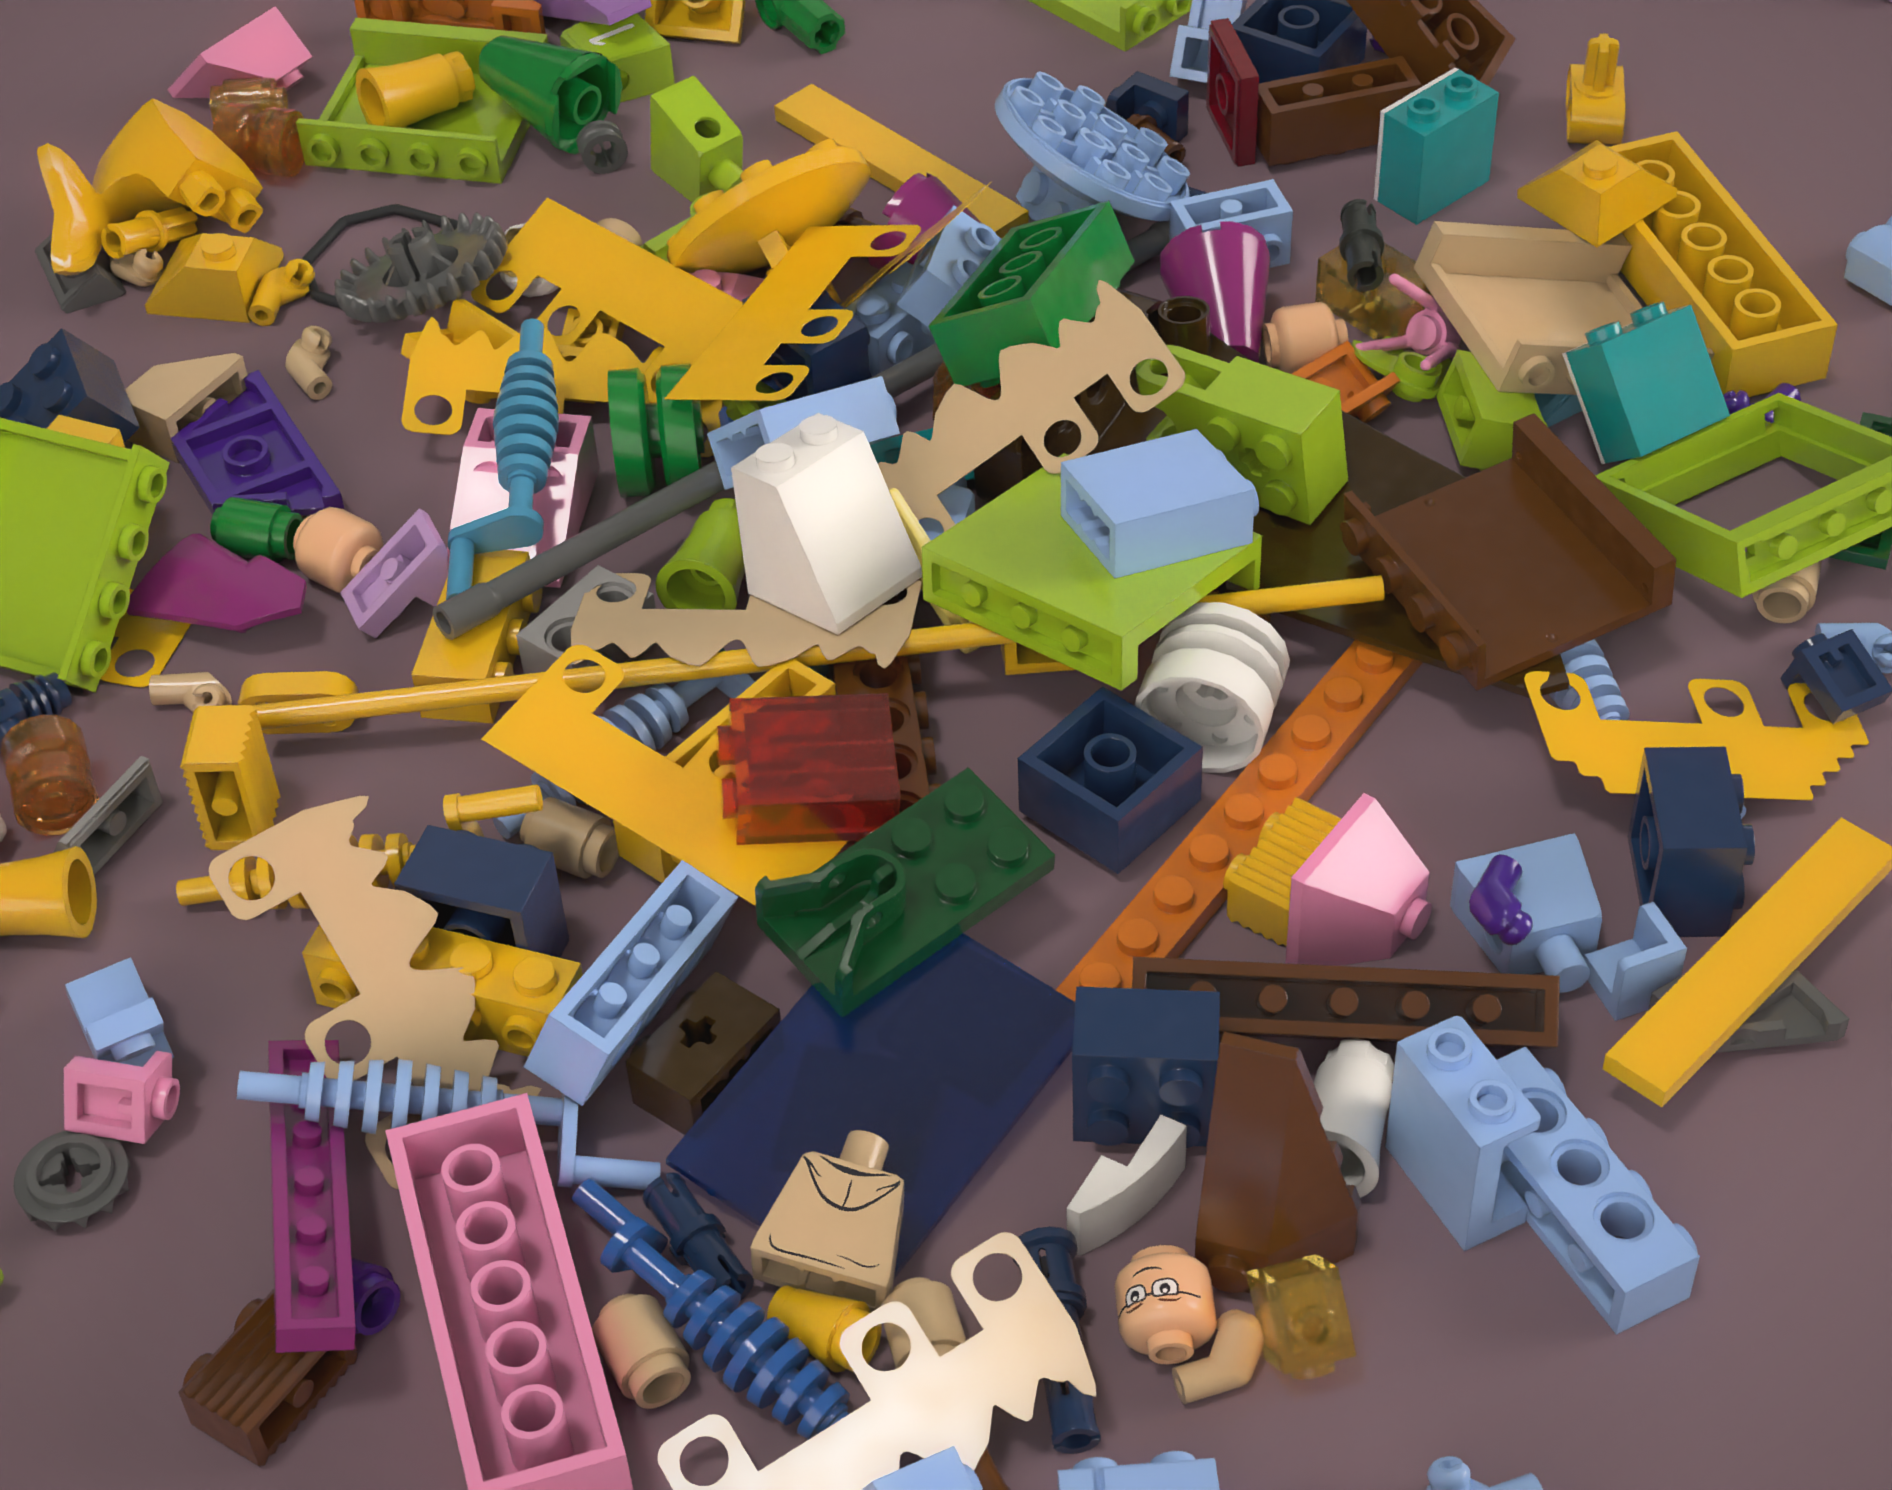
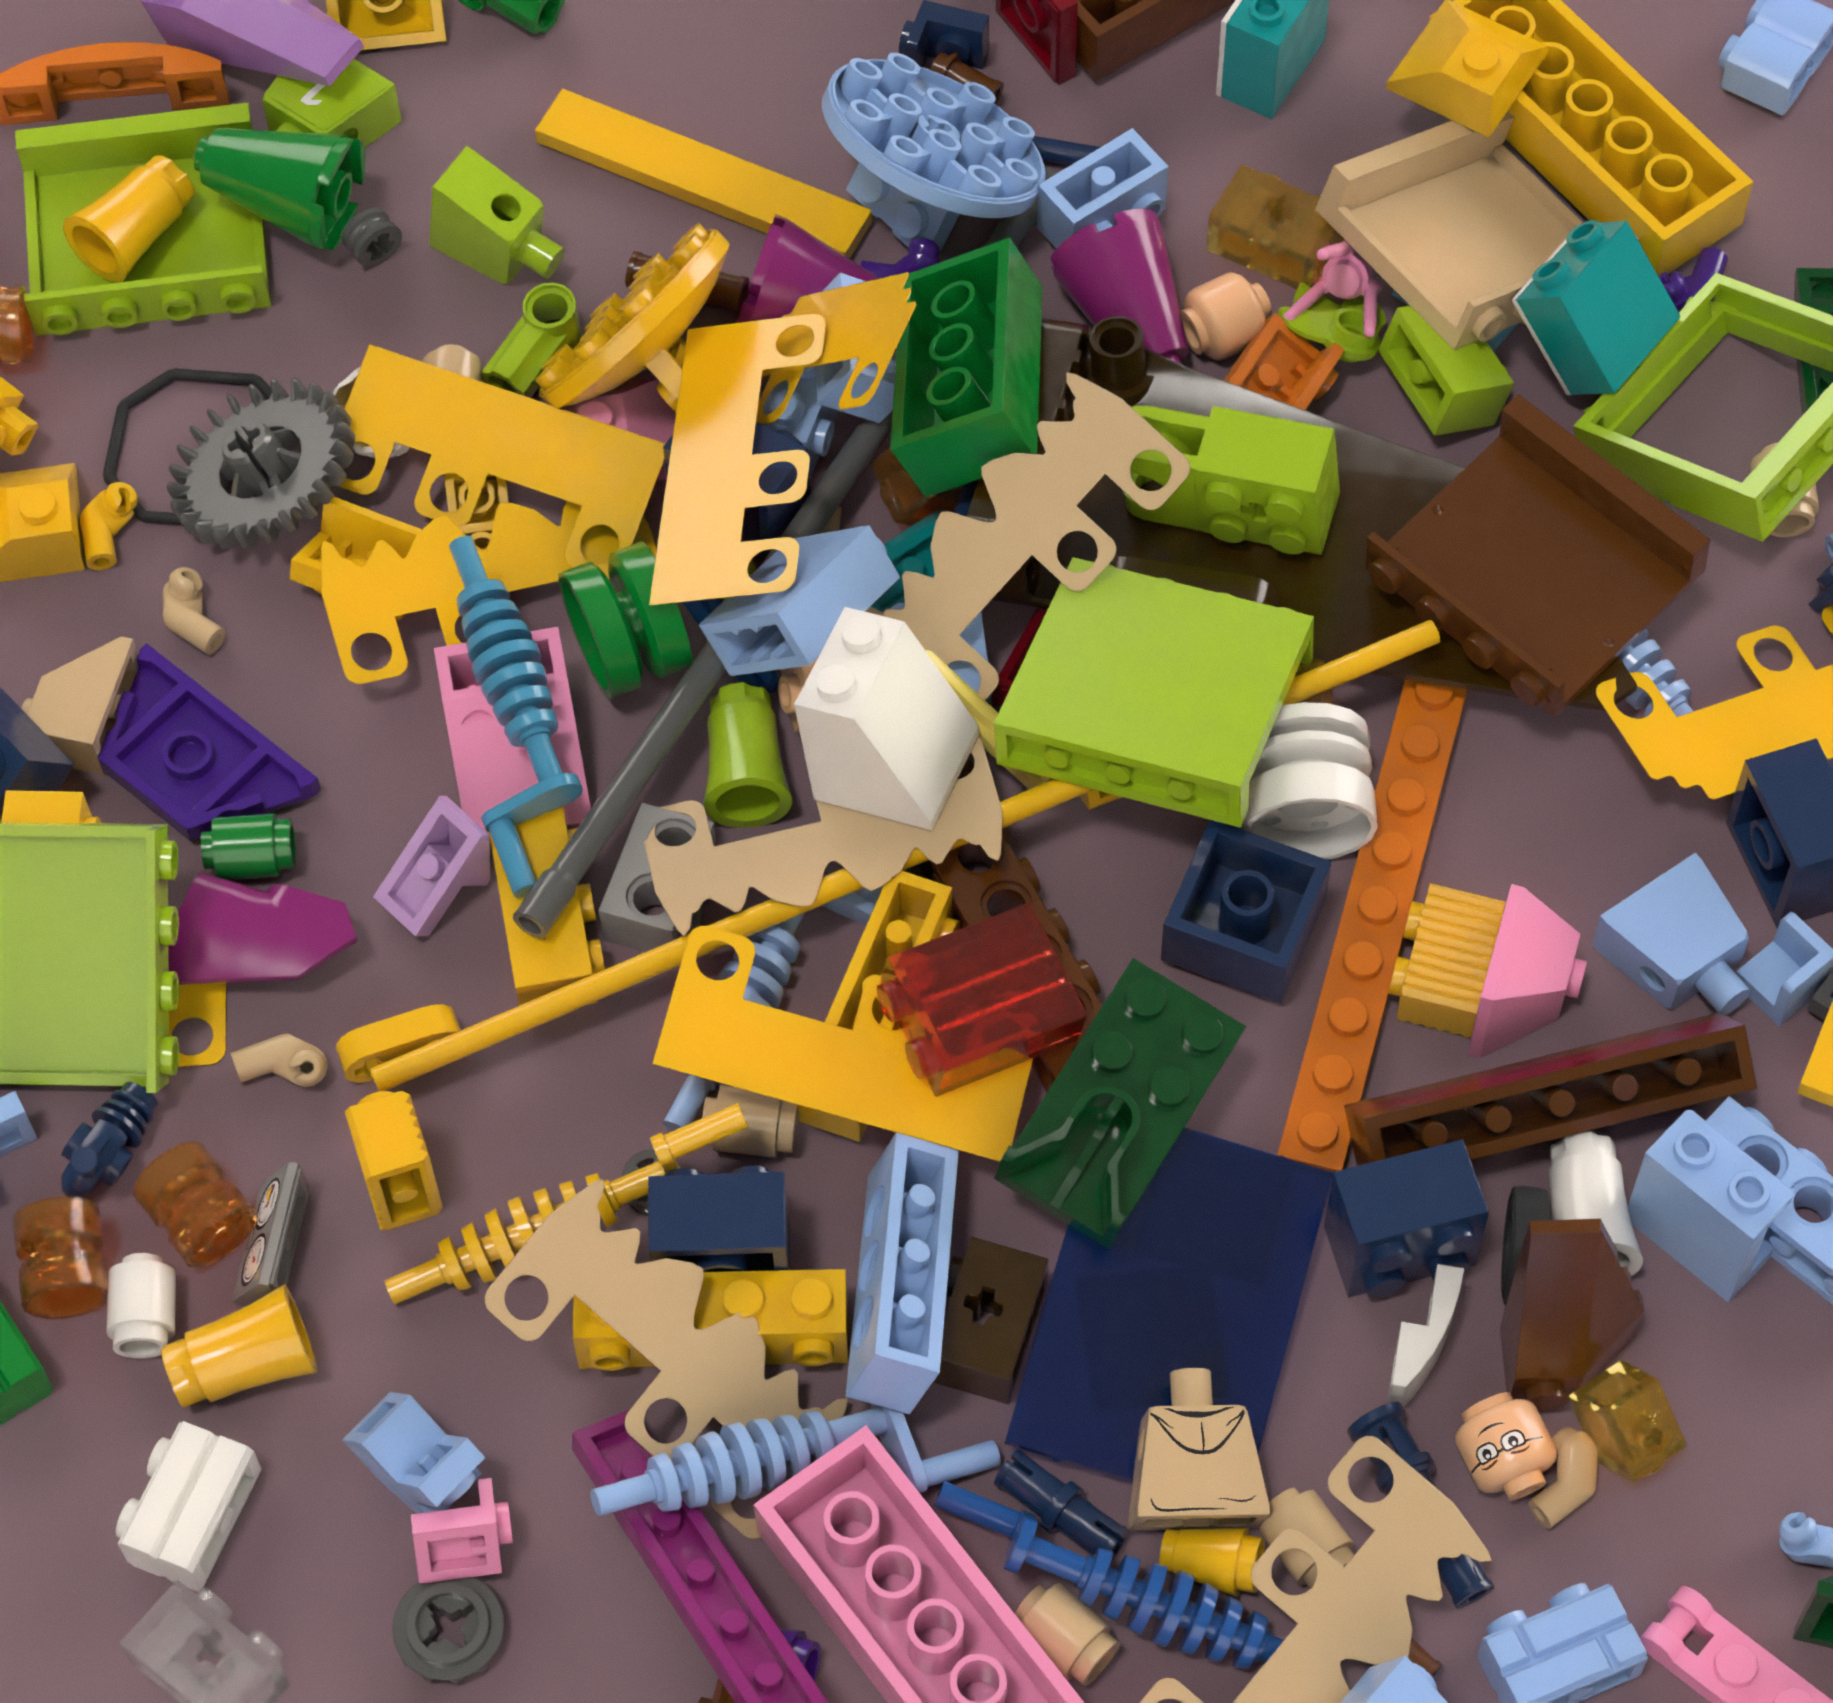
camera: 20 degrees left, 15 degrees up
(335, 546) = (349, 848): light nougat head -> none
(1157, 503) = (1209, 615): light blue brick -> none
(1361, 245) = (1254, 194): pearl dark grey pin -> none
(1496, 905) = (1657, 958): dark purple arm -> none

